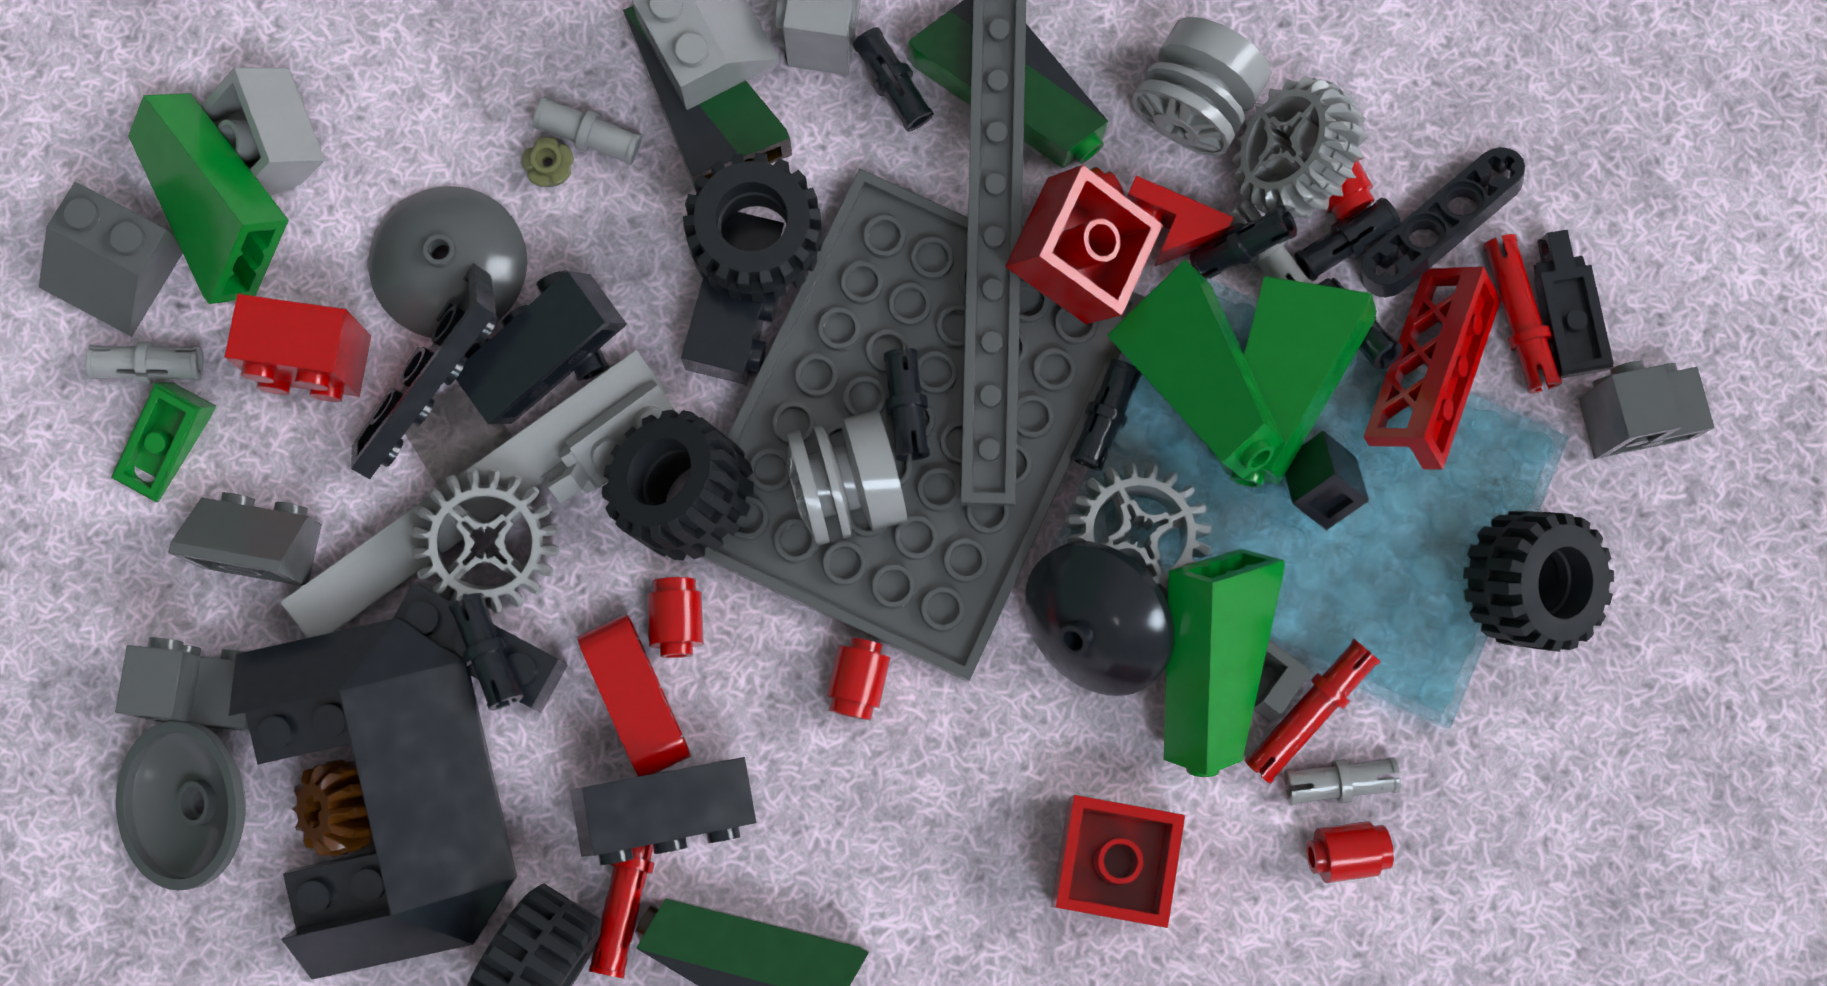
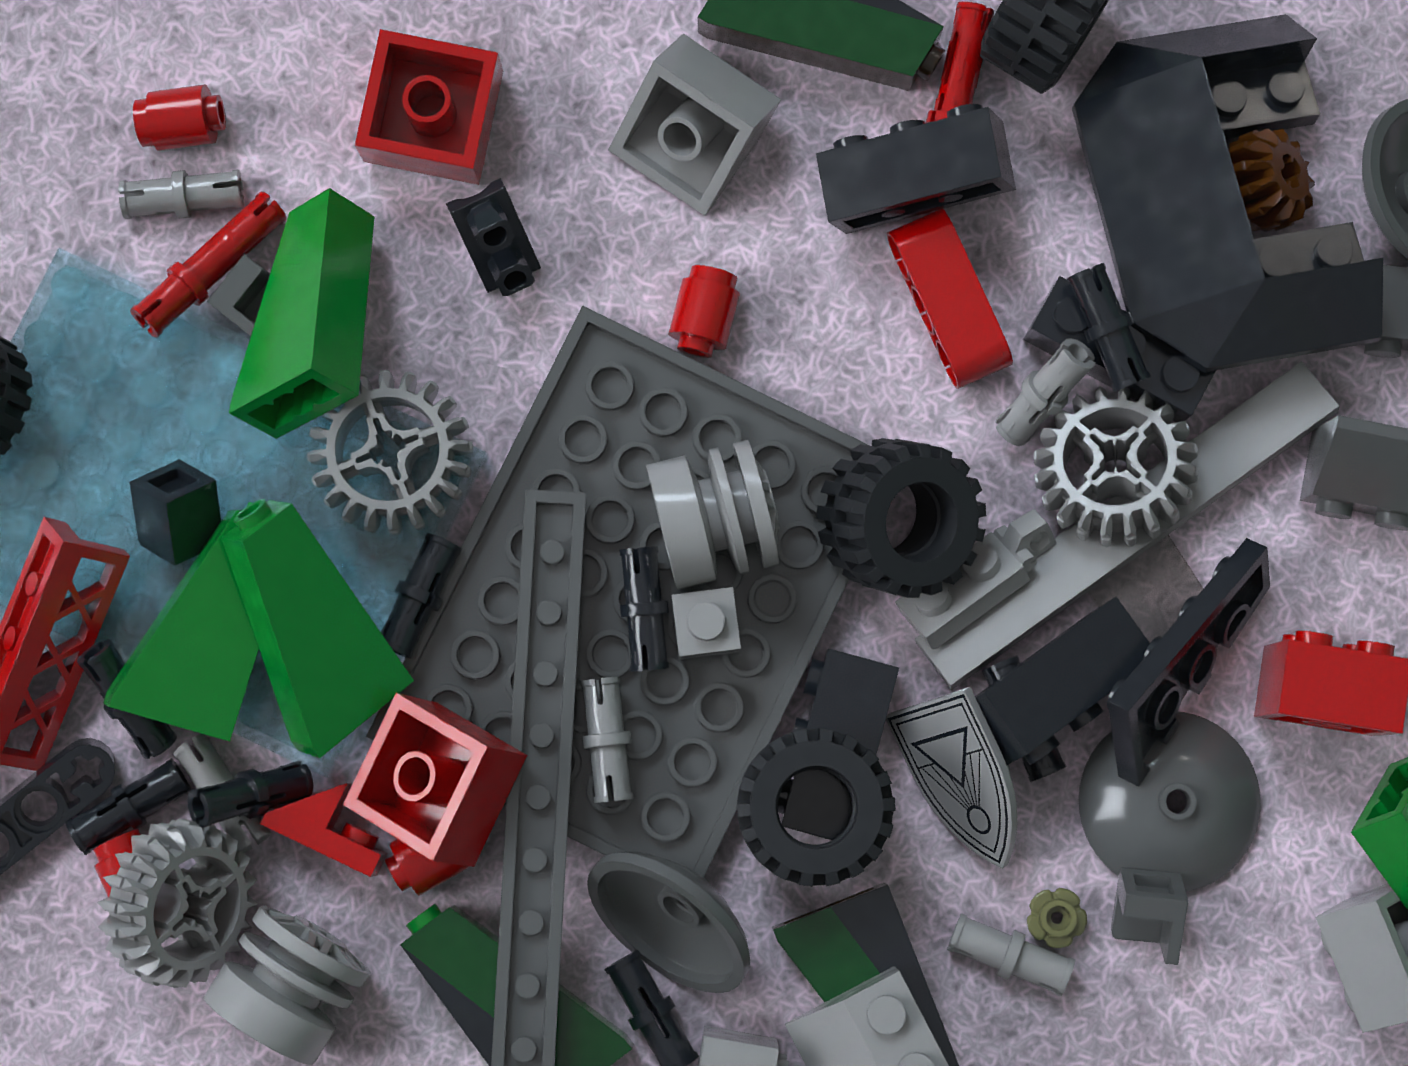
camera: 175 degrees left, 5 degrees up
(464, 170) = (1151, 909): none -> dark grey panel
(546, 604) = (1045, 392): none -> light grey pin
(628, 274) = (960, 771): none -> light grey shield
(675, 616) = (904, 382): red brick -> none
(850, 386) = (706, 623): none -> light grey brick
(870, 856) = (693, 123): none -> light grey slope
(874, 144) = (671, 919): none -> dark grey dish
(936, 293) = (606, 739): none -> light grey pin
(1050, 737) = (495, 239): none -> black hips
(1099, 618) = (438, 360): black dish -> none

